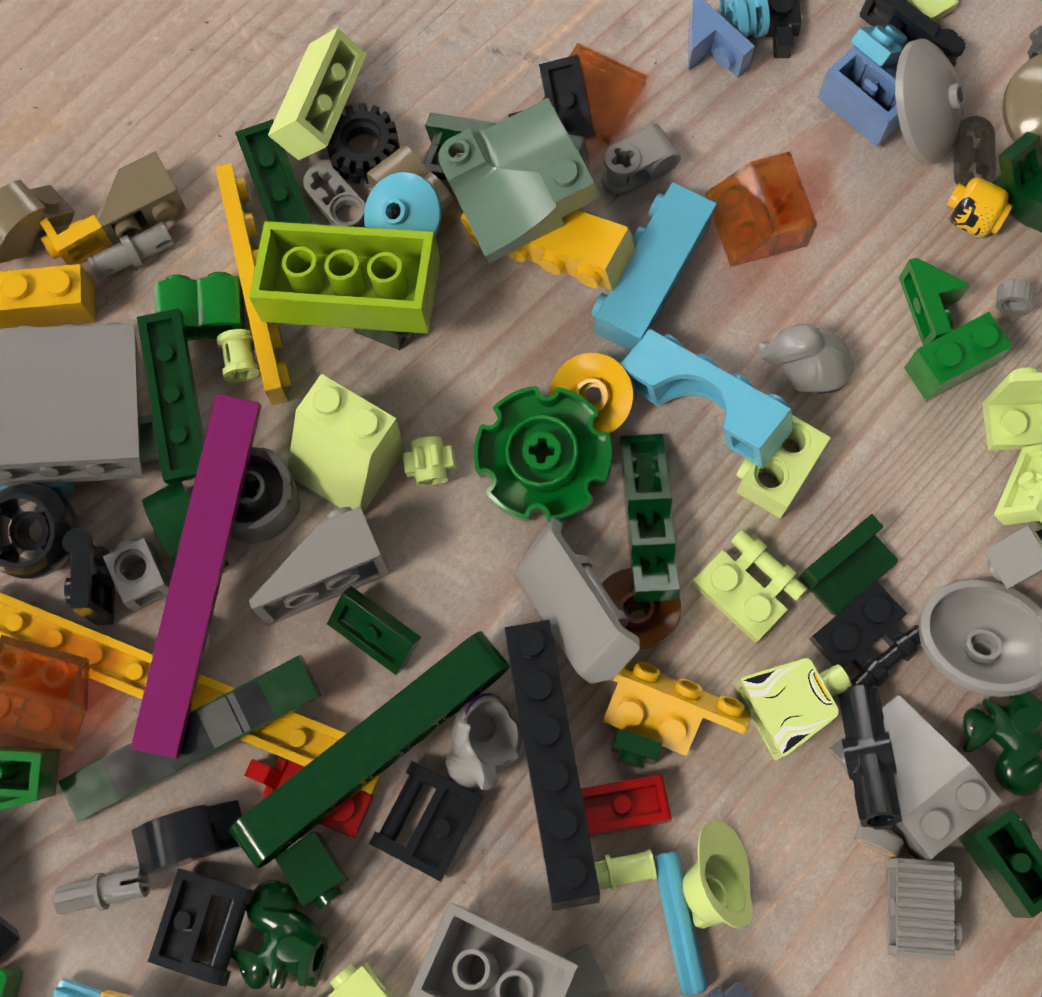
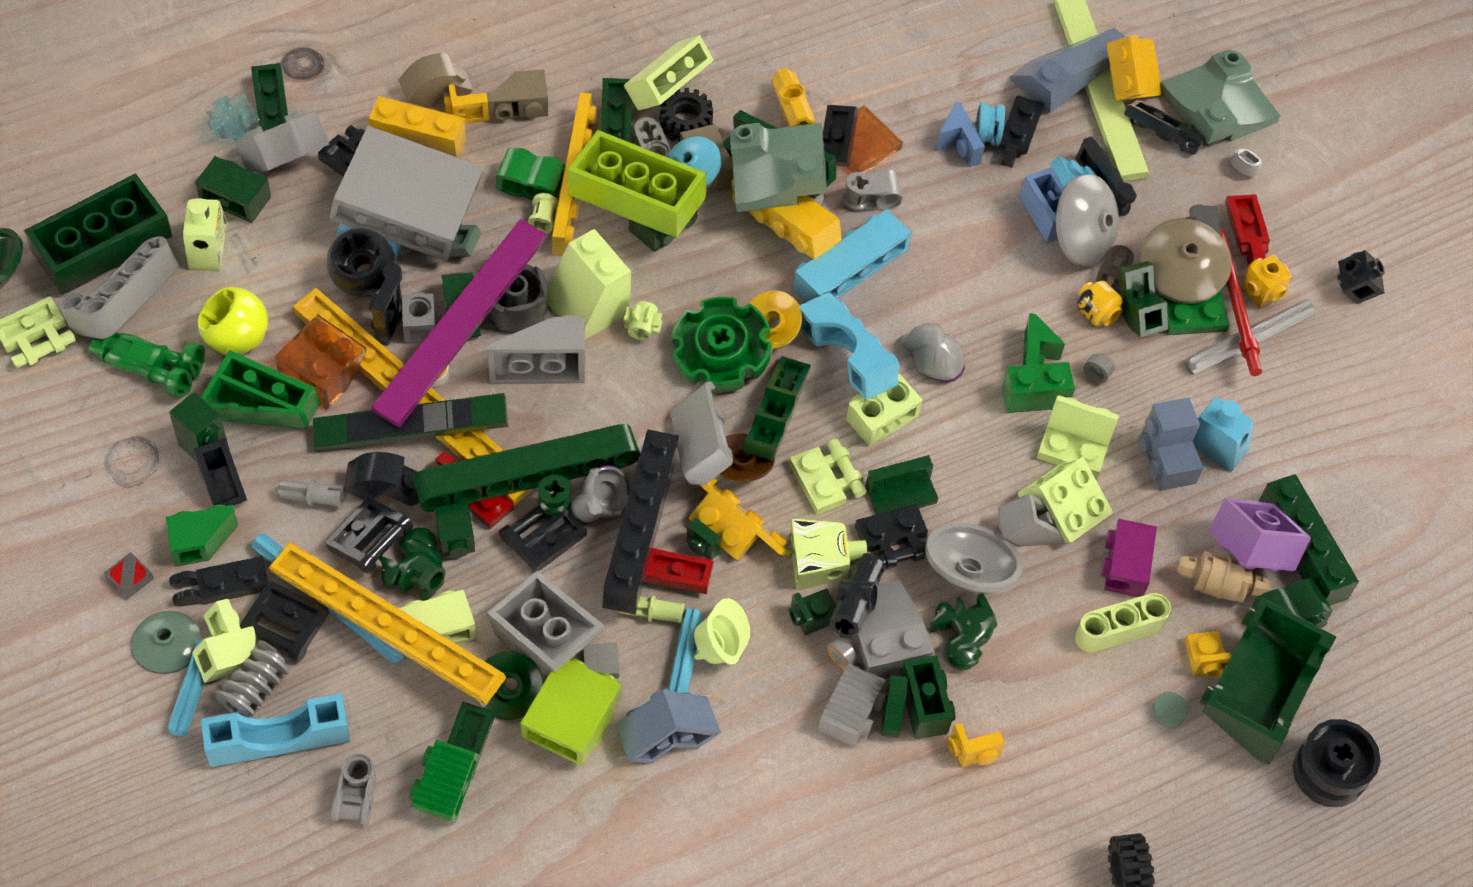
camera: 15 degrees right, 15 degrees down
(130, 251) = (499, 126): light grey pin -> none
(172, 394) = (490, 214): dark green plate -> none
(373, 630) = (559, 406): dark green plate -> none
(425, 780) = (560, 500): none -> dark green wheel
(490, 73) = (792, 98): none -> yellow piece
(762, 210) = (942, 250): clear orange slope -> none
(814, 788) = (812, 611): none -> dark green bracket
(980, 894) = (894, 706): none -> dark green beam

